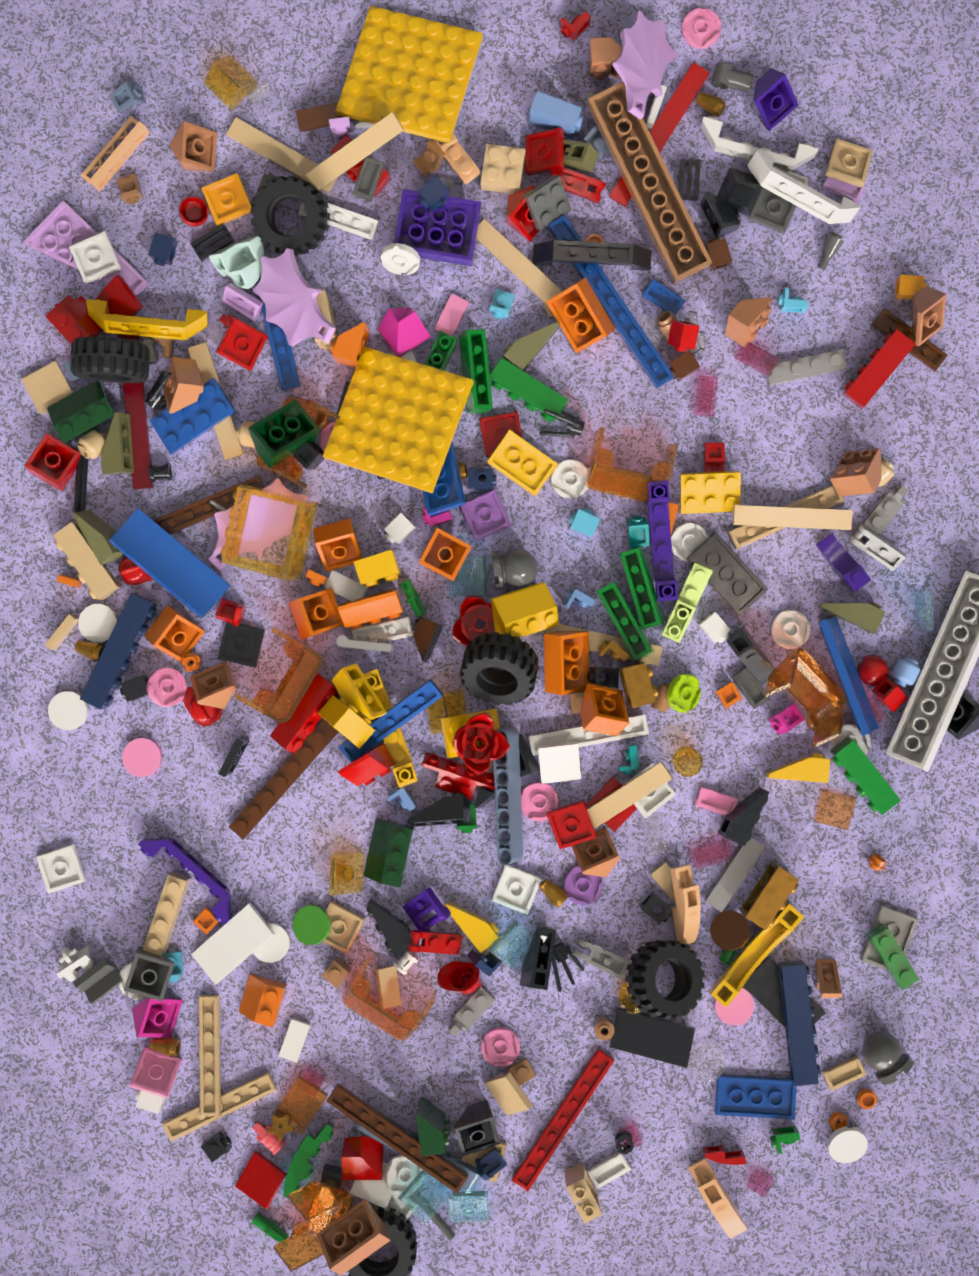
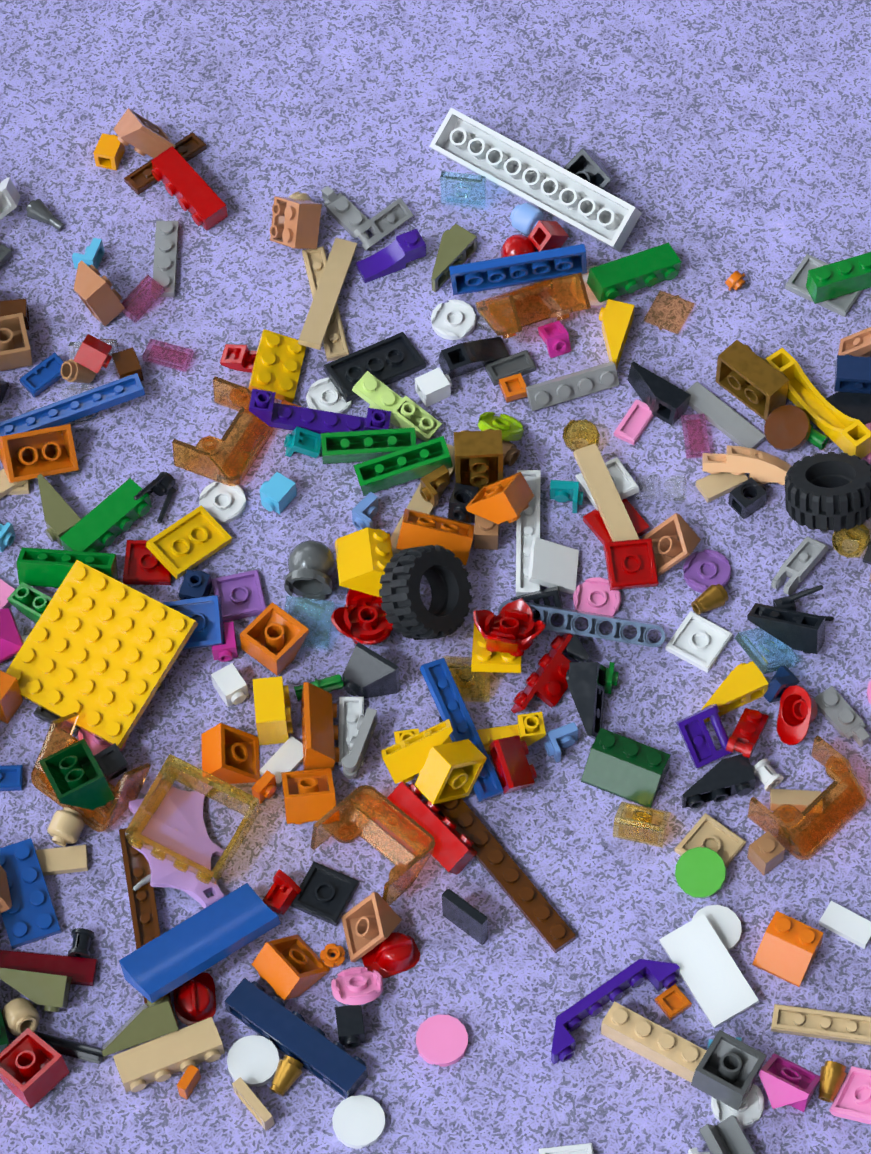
camera: 70 degrees left, 30 degrees down
(739, 744) = (572, 386): none -> light grey plate

